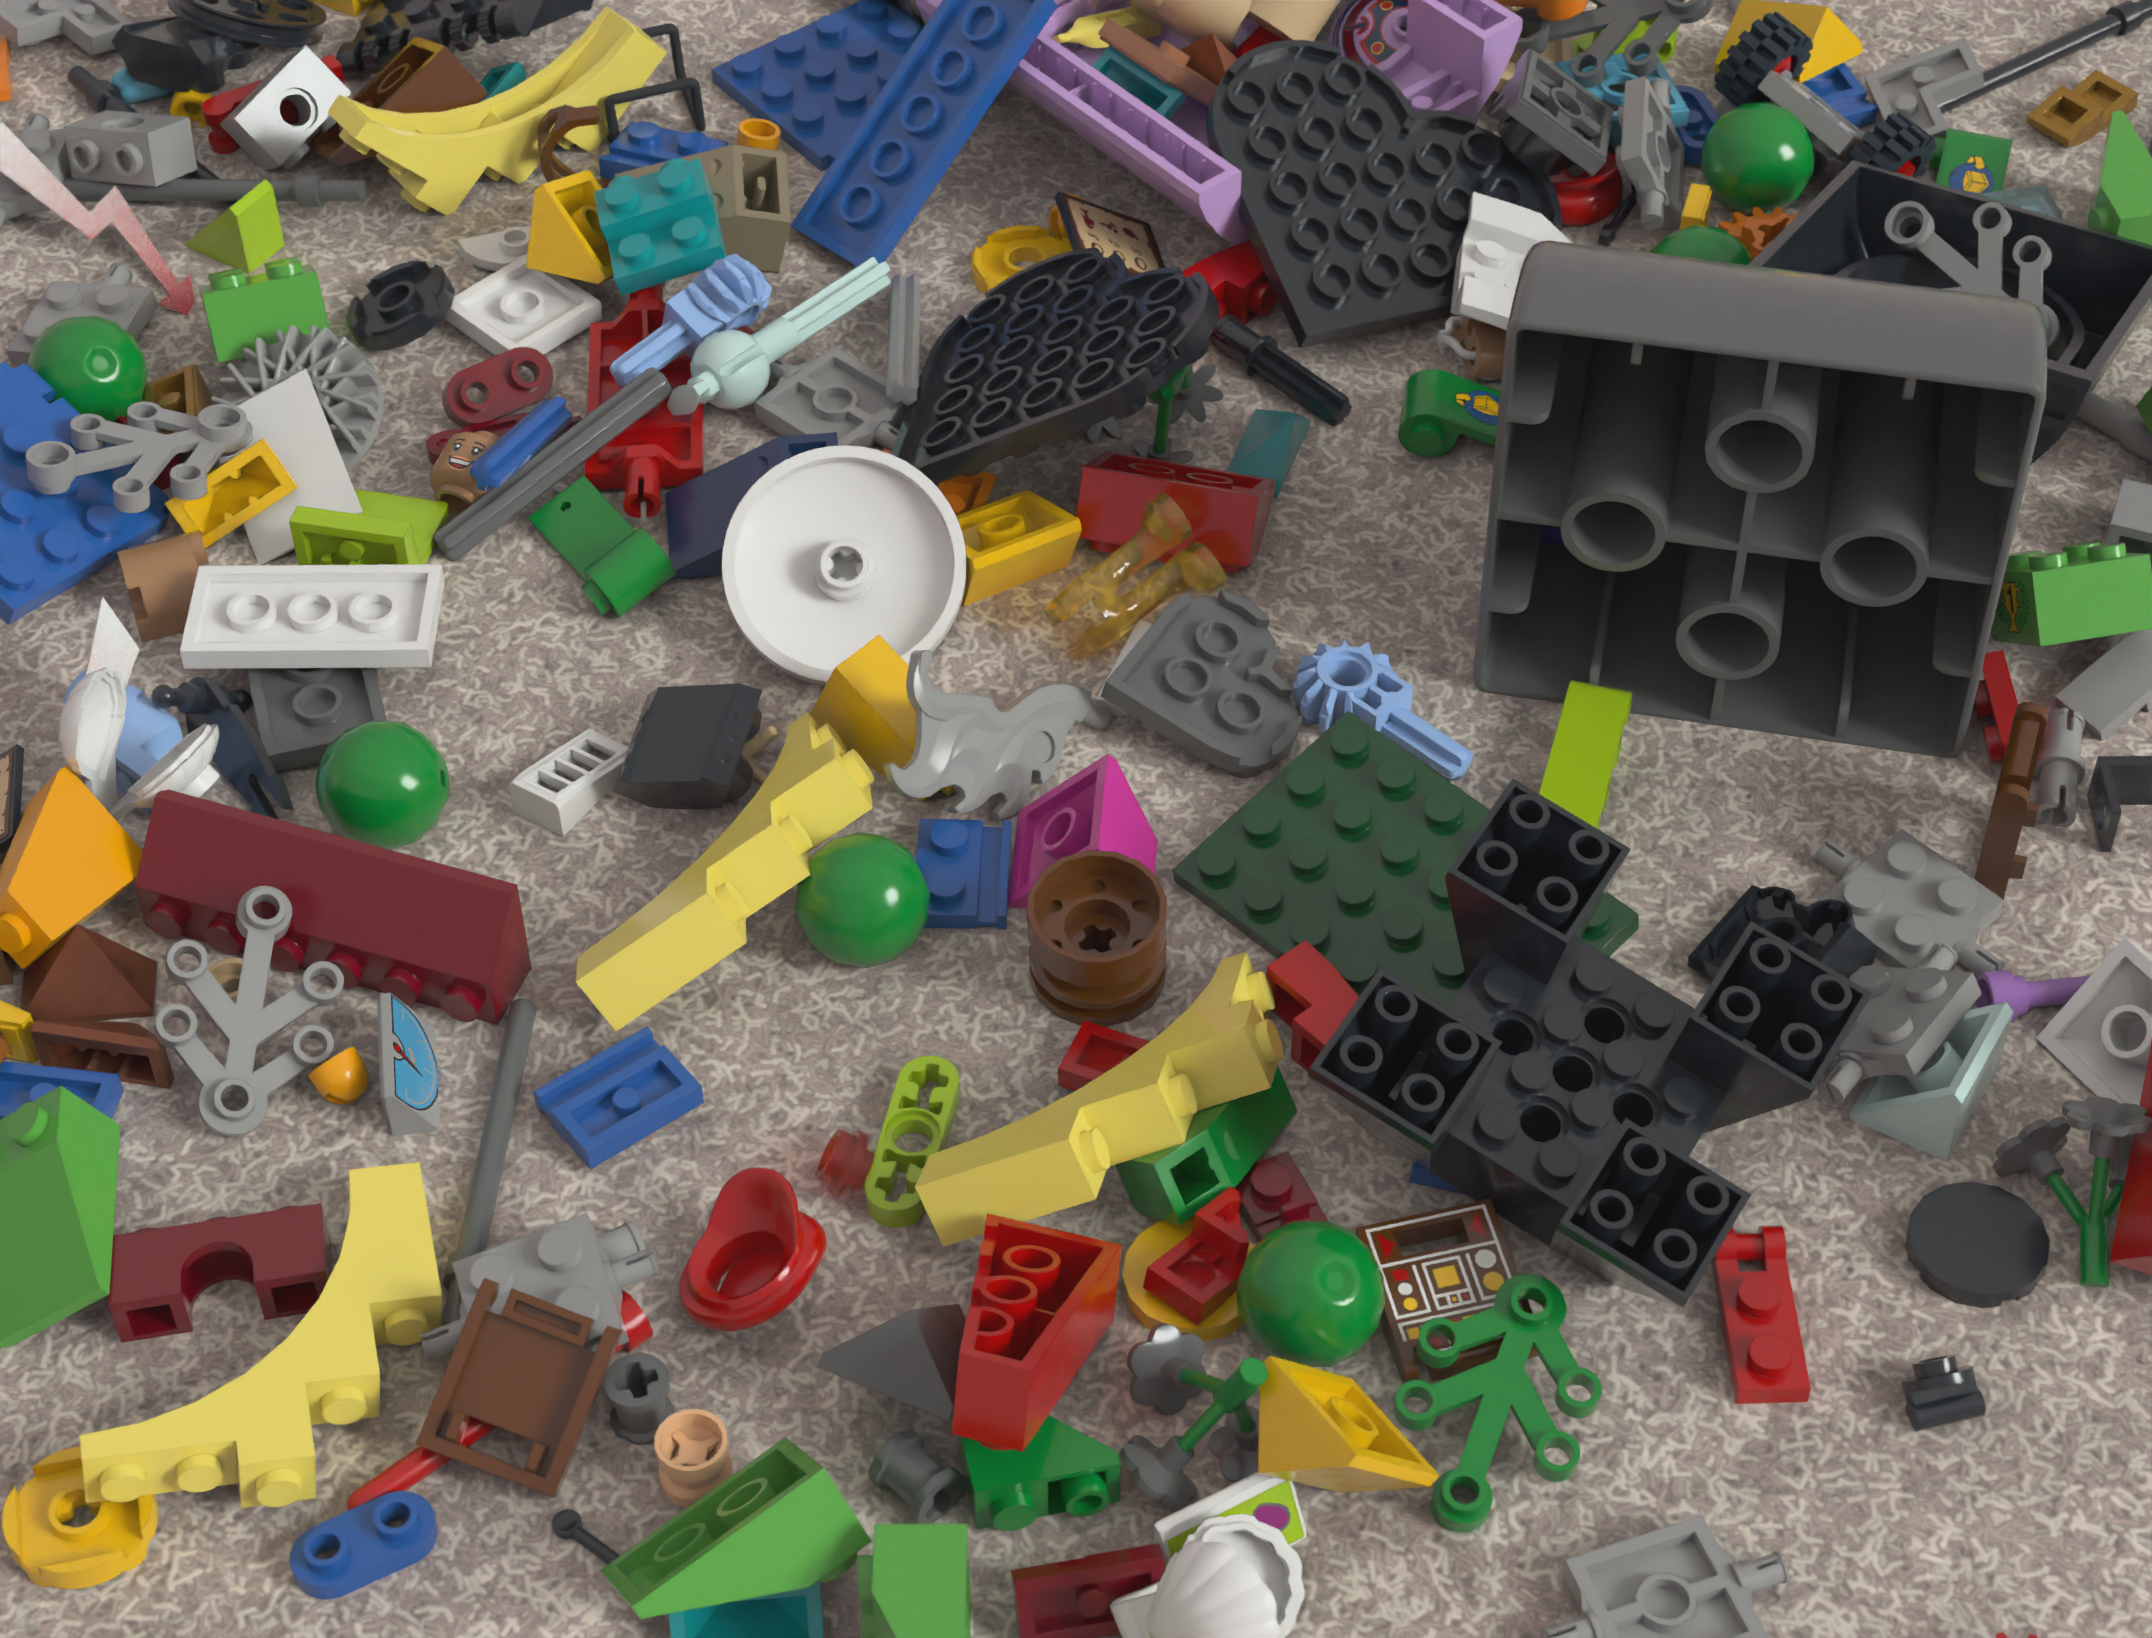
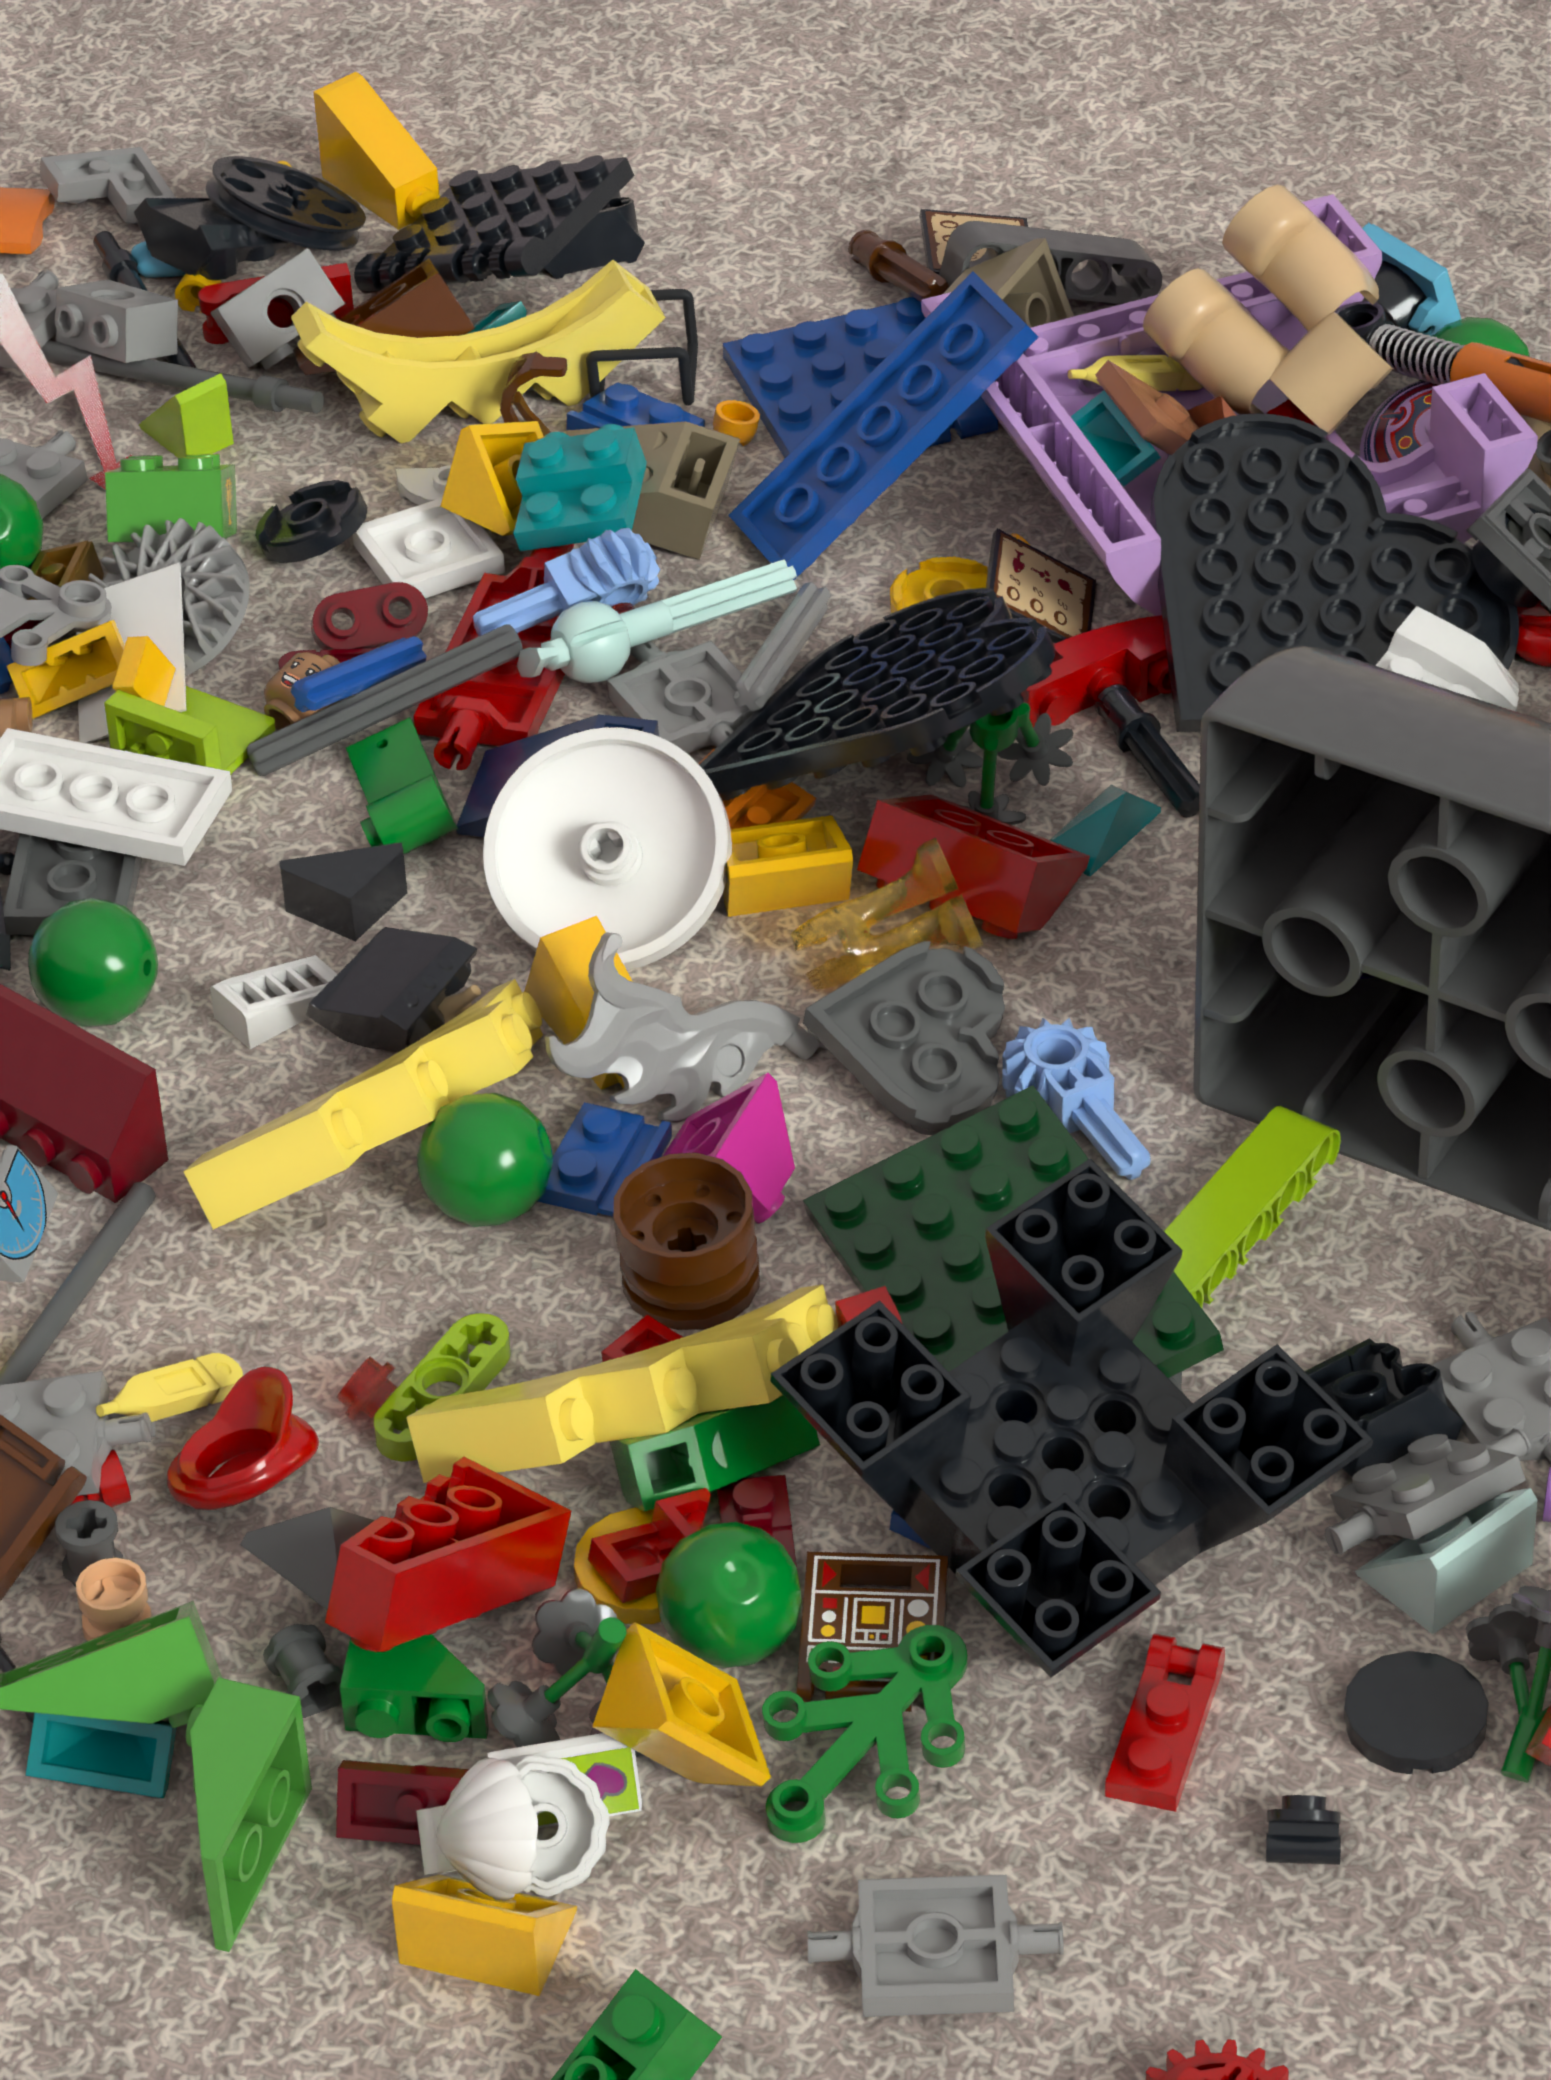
camera: 20 degrees right, 5 degrees down
(313, 480) = (144, 670): none -> yellow tile
(591, 657) = (345, 888): none -> black slope
(618, 1097) = (190, 1287): blue plate -> none
(657, 1209) = (176, 1388): none -> light yellow piece

